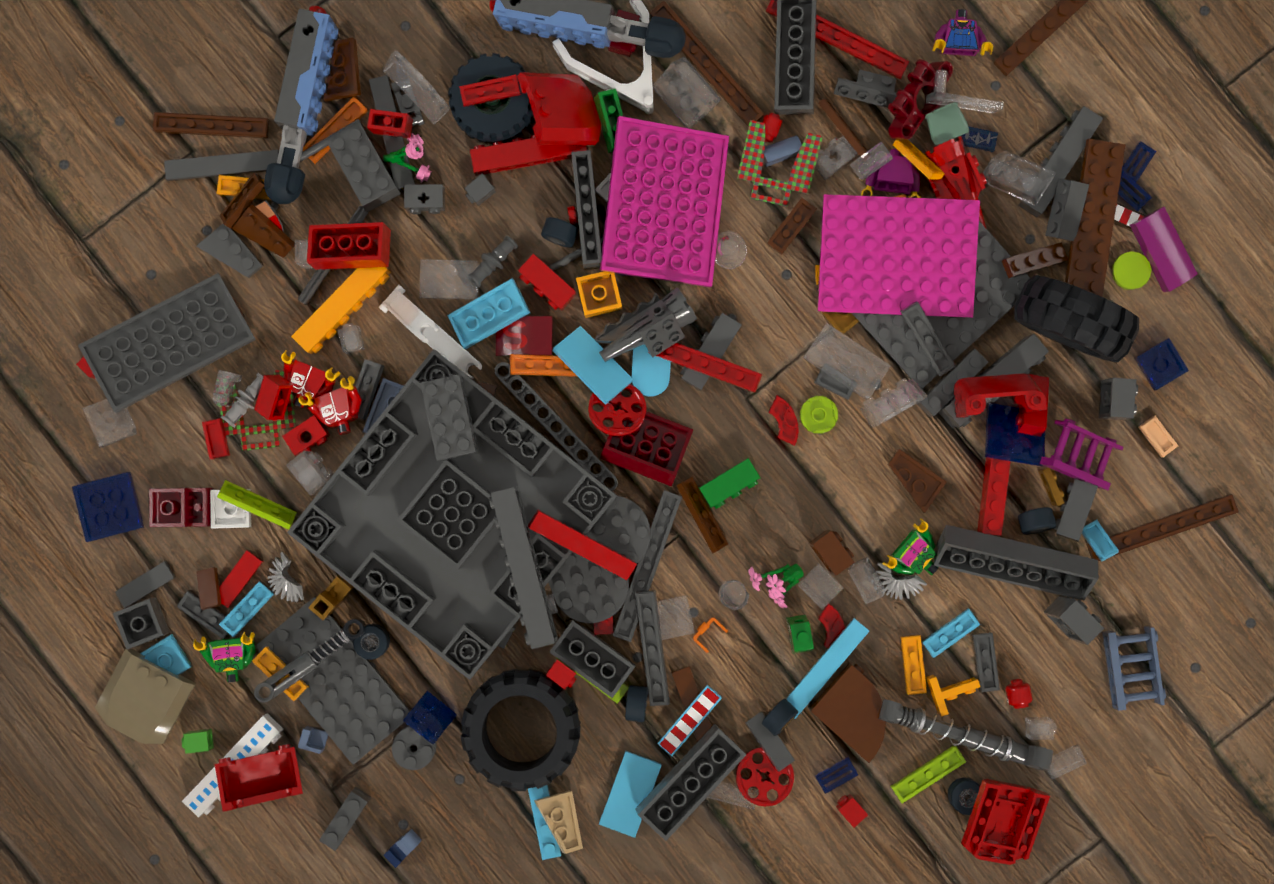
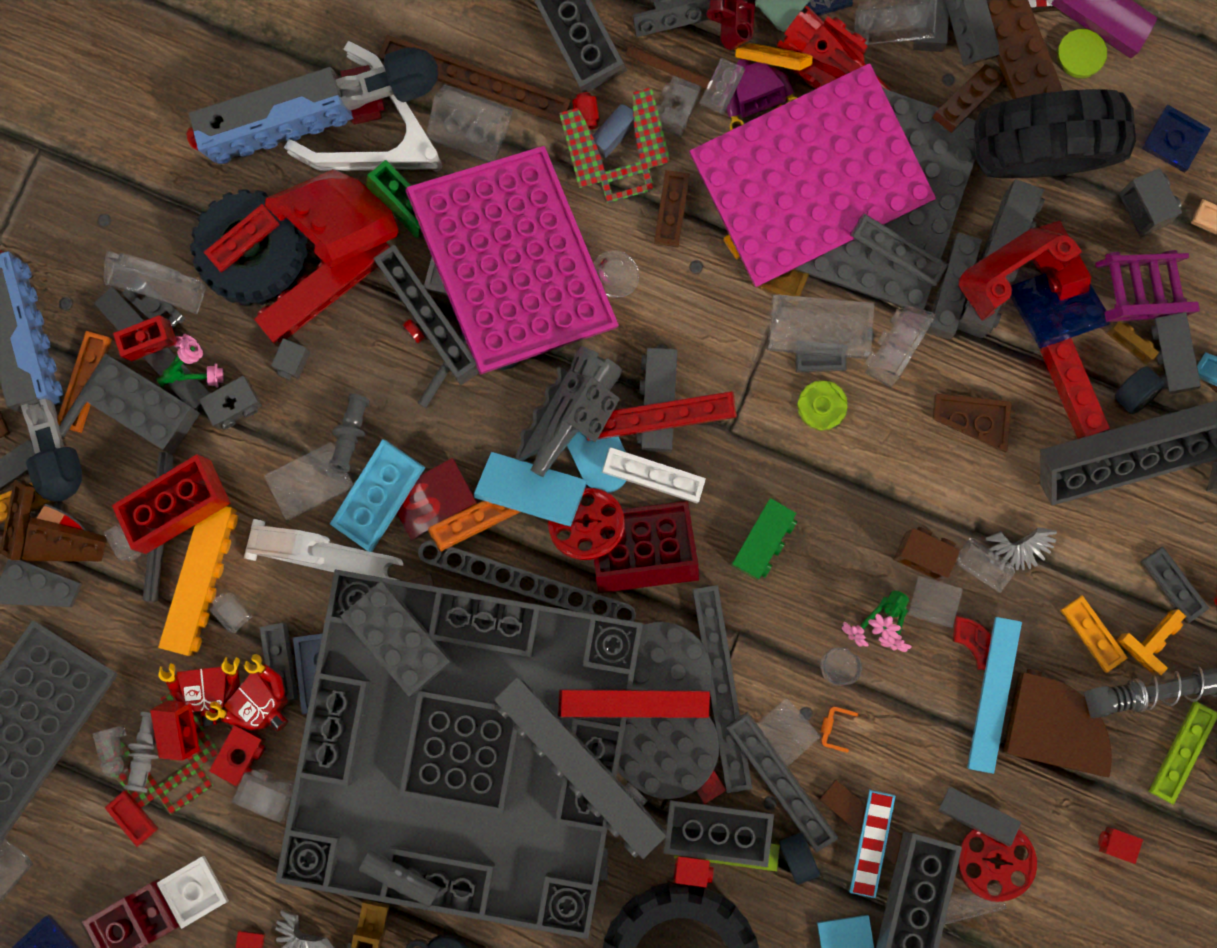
camera: 25 degrees left, 5 degrees down
(257, 504) = (221, 869): lime plate -> none
(344, 75) = (61, 309): reddish brown wing -> none
(368, 574) = (399, 878): none -> dark grey axle
(546, 283) = (425, 423): red brick -> none
(559, 232) = (409, 357): black wheel -> none
(599, 293) = (493, 403): light orange brick -> none
(679, 400) = (653, 475): none -> white plate
(702, 515) = (753, 593): reddish brown plate -> none
(780, 717) = (975, 780): black wheel -> none
(786, 420) = (788, 431): red tile -> none
(800, 634) = (943, 670): green torso -> none
(833, 768) = (1070, 808): clear blue tile -> none
(914, 552) = (1021, 502): torso -> none
(950, 633) = (1115, 573): medium azure tile -> none

